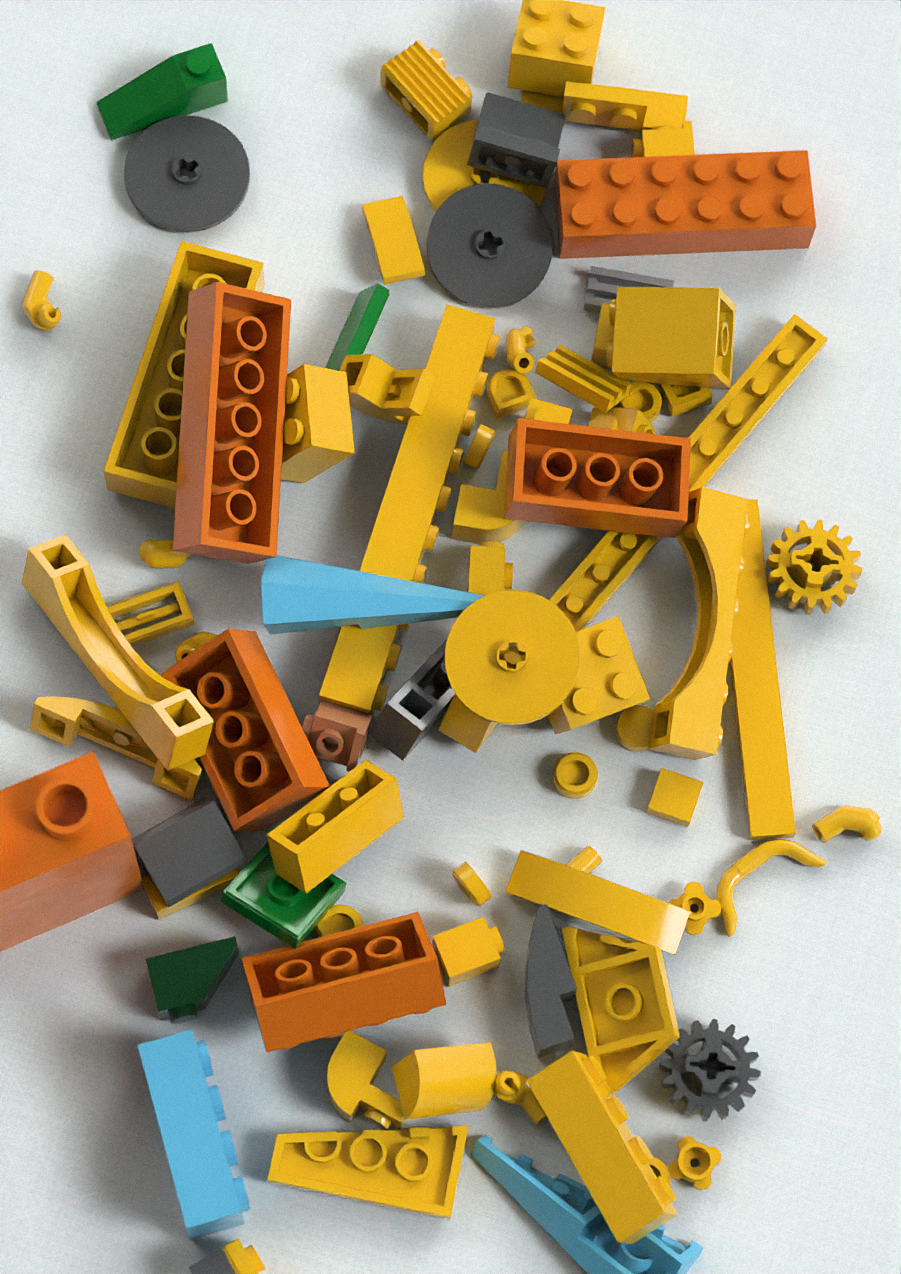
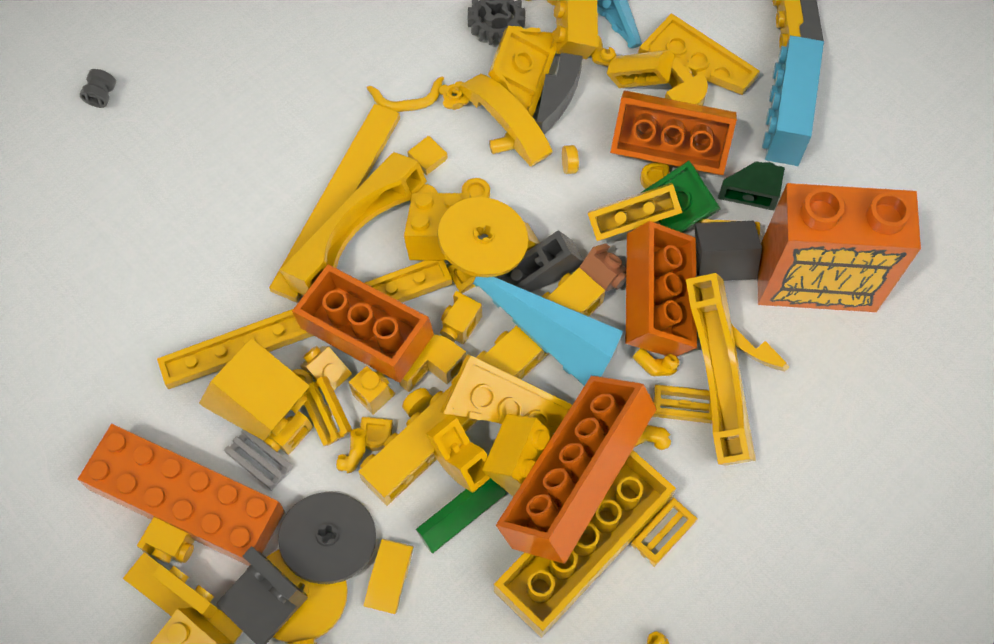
camera: 145 degrees left, 5 degrees down
(87, 479) = (646, 550): none -> yellow tile
(366, 484) = (490, 394): none -> yellow wing
(468, 951) = (591, 127): yellow brick -> none
(830, 566) = (269, 240): yellow gear -> none
(848, 818) = (340, 99): yellow arm -> none

